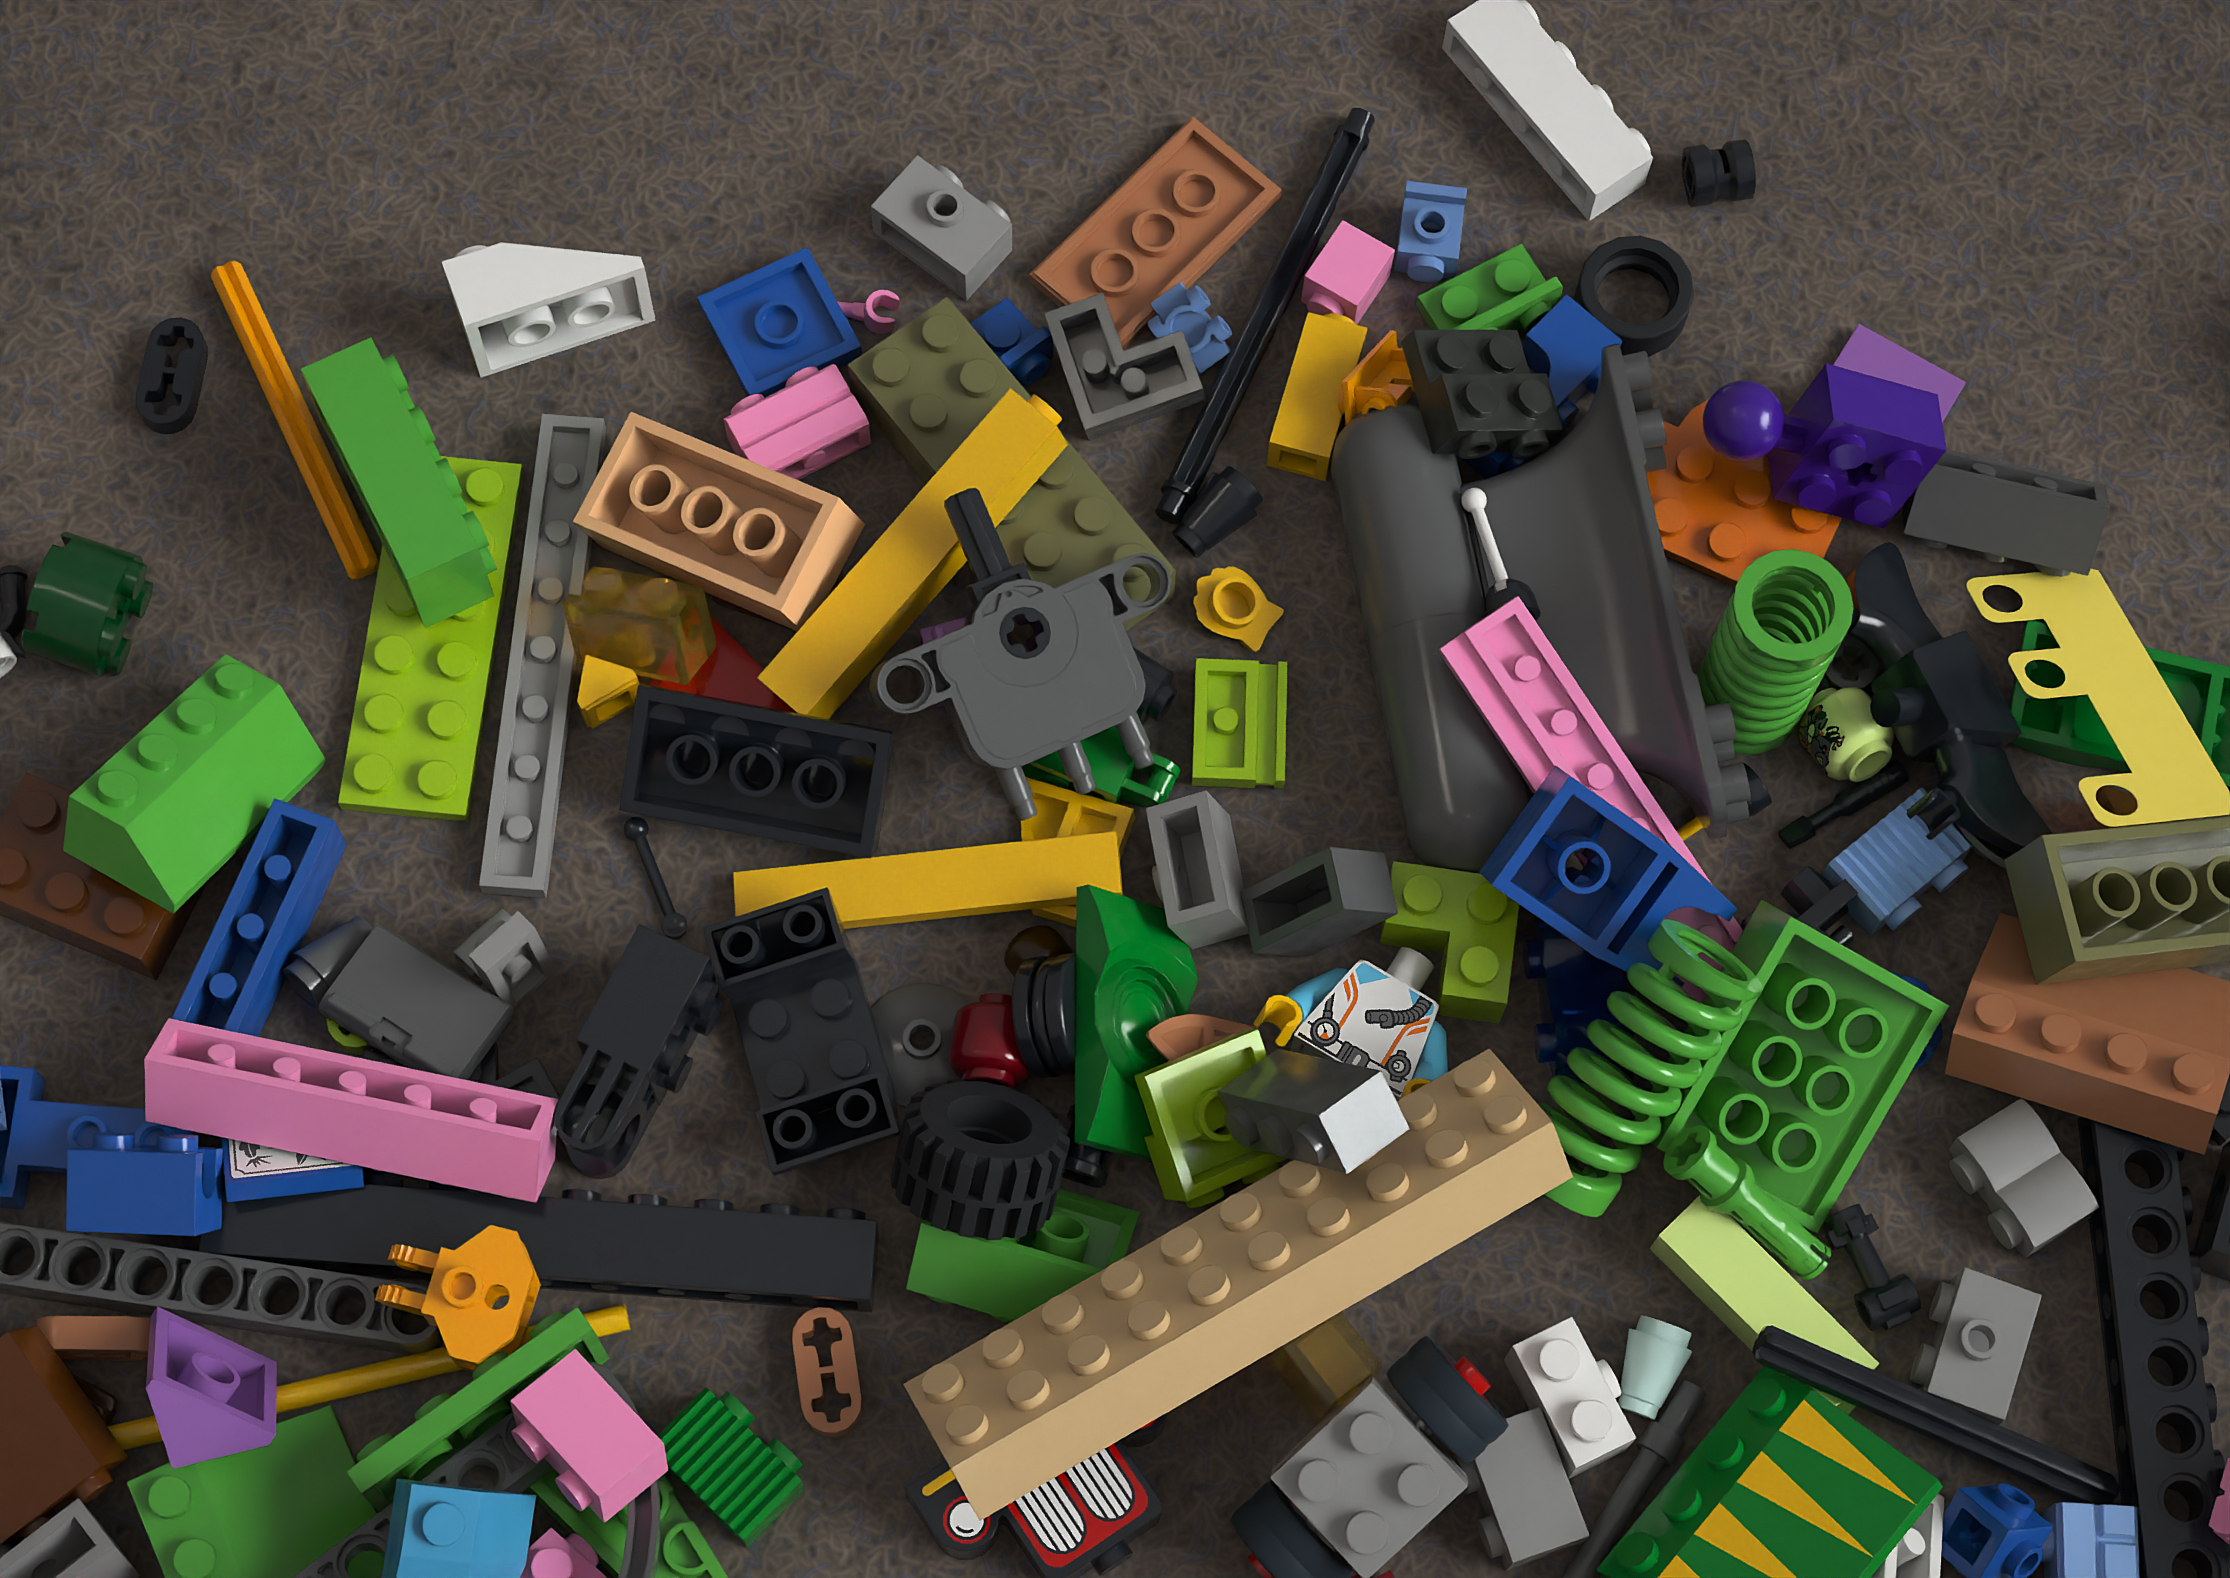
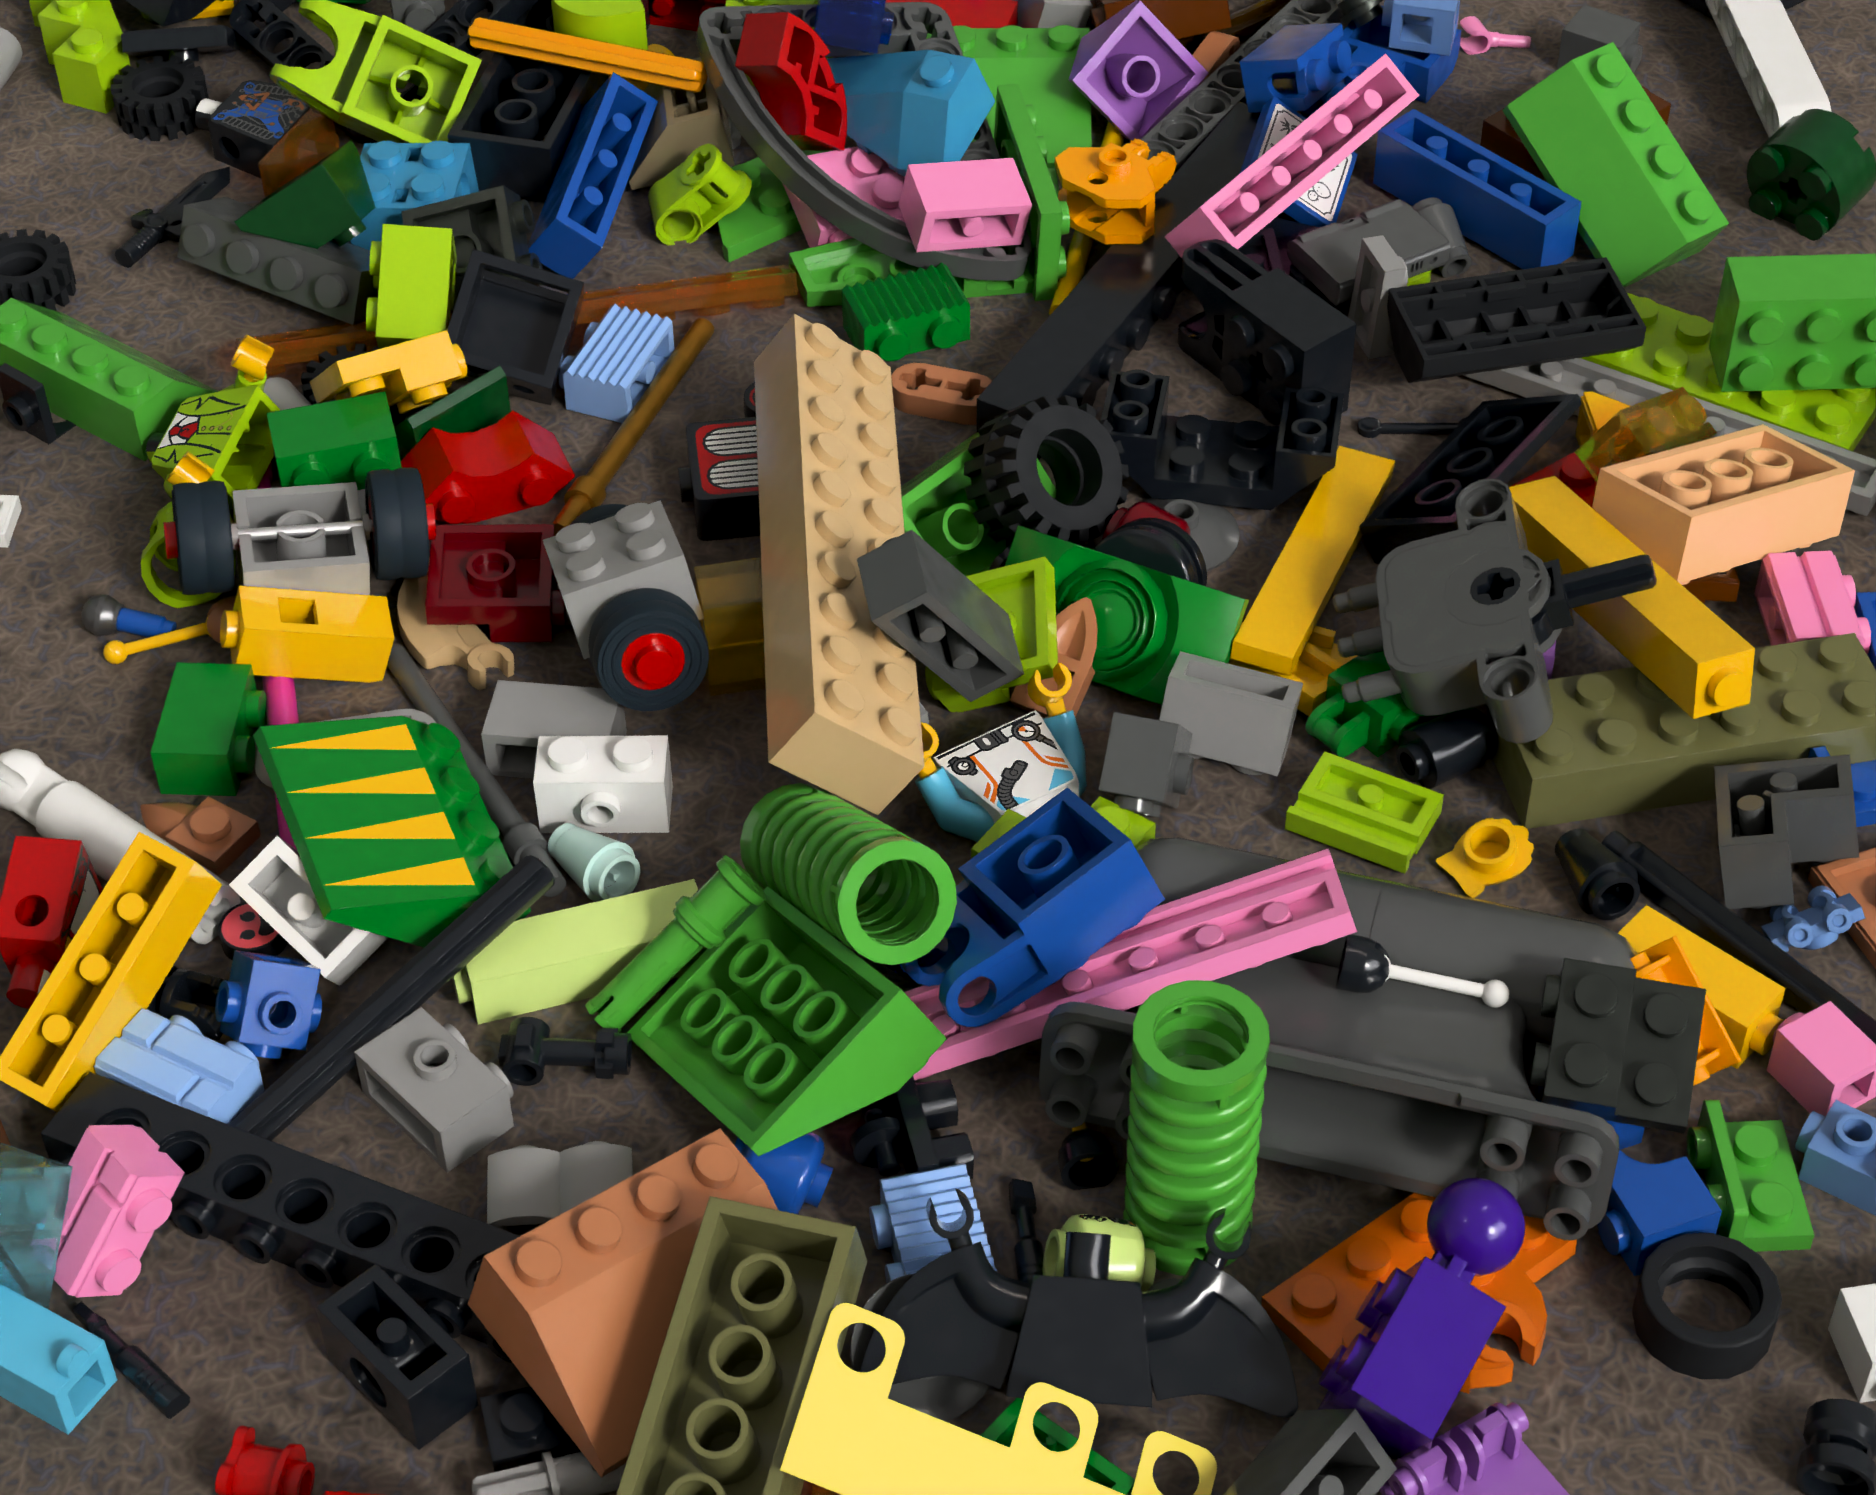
camera: 120 degrees right, 25 degrees down
(516, 801) = (1511, 320): none -> black piece

